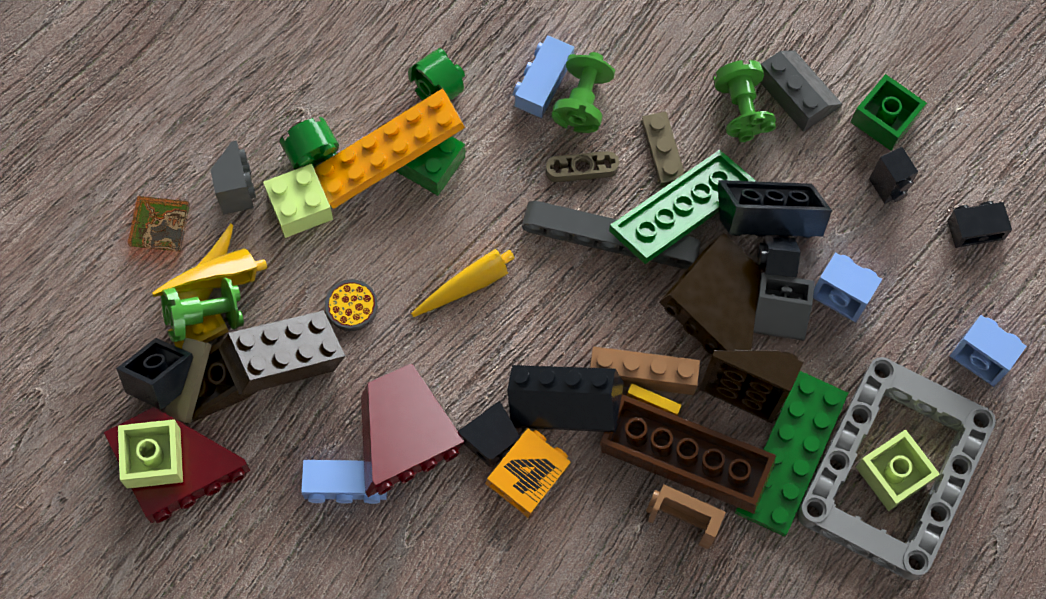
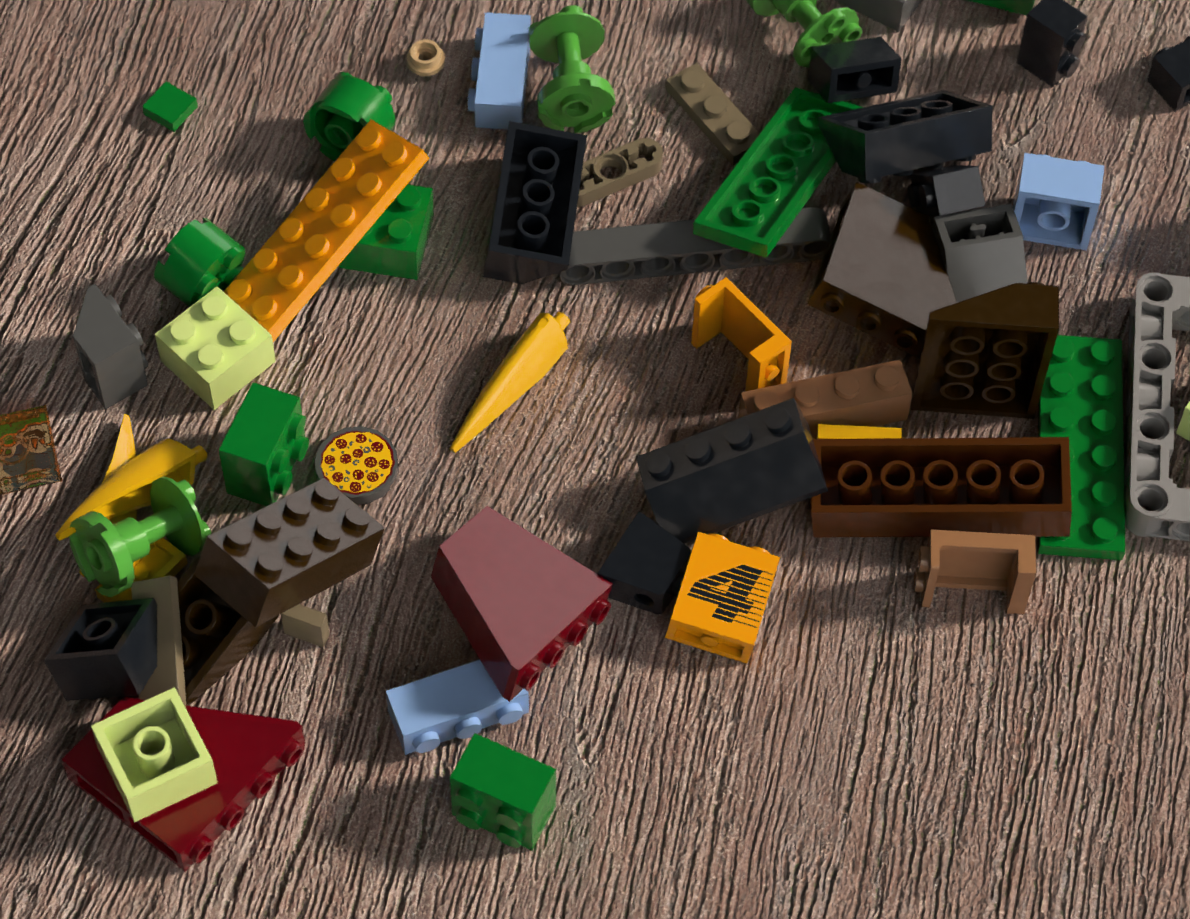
camera: 20 degrees left, 10 degrees down
(279, 398) = (306, 624): none -> dark tan tile
(297, 276) = (263, 445): none -> green brick
(338, 30) = (170, 106): none -> green tile
(343, 549) = (502, 792): none -> green brick
(502, 45) = (428, 51): none -> tan plate
(523, 173) = (534, 203): none -> black slope
(604, 284) = (729, 311): none -> light orange panel
(759, 152) = (854, 69): none -> black brick

